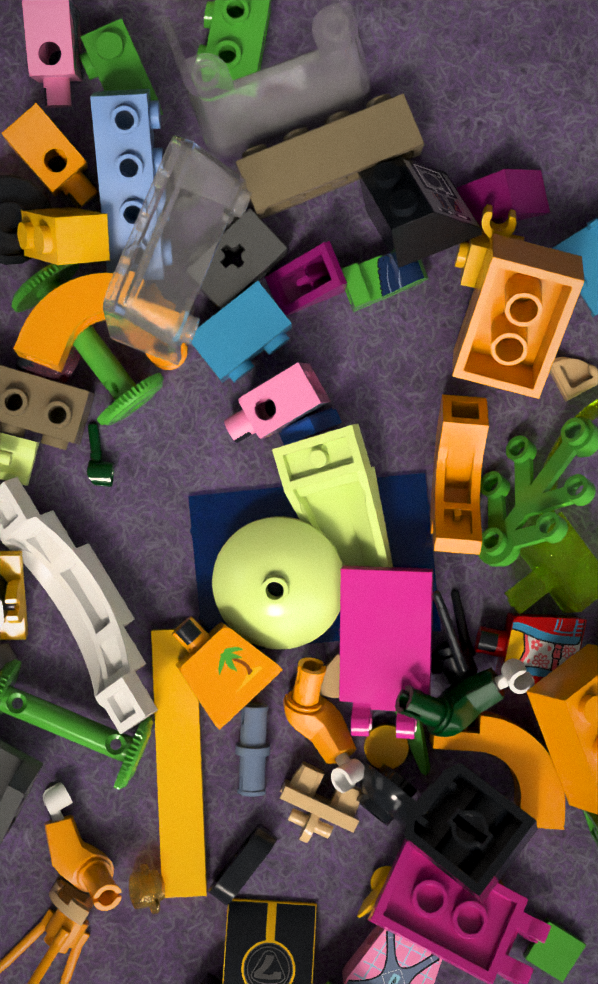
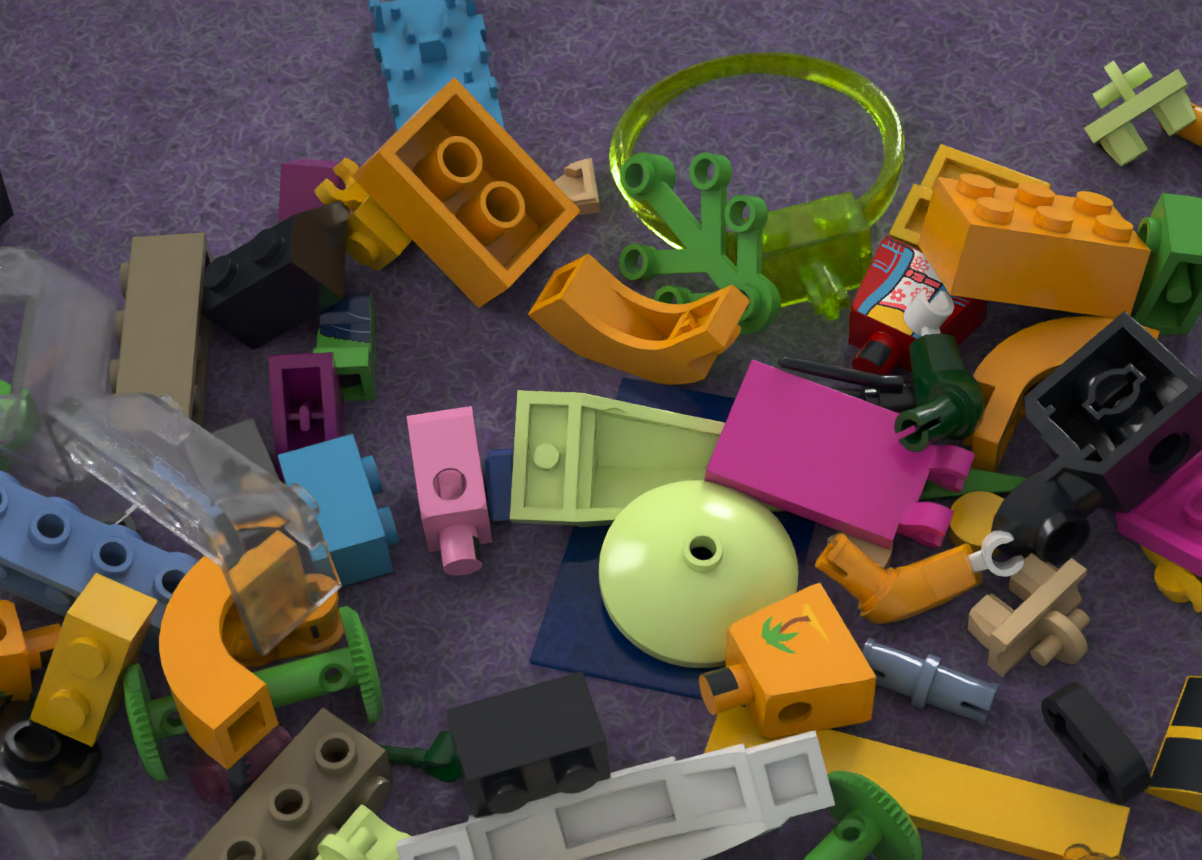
camera: 65 degrees left, 35 degrees down
(92, 536) = (528, 745): none -> black slope

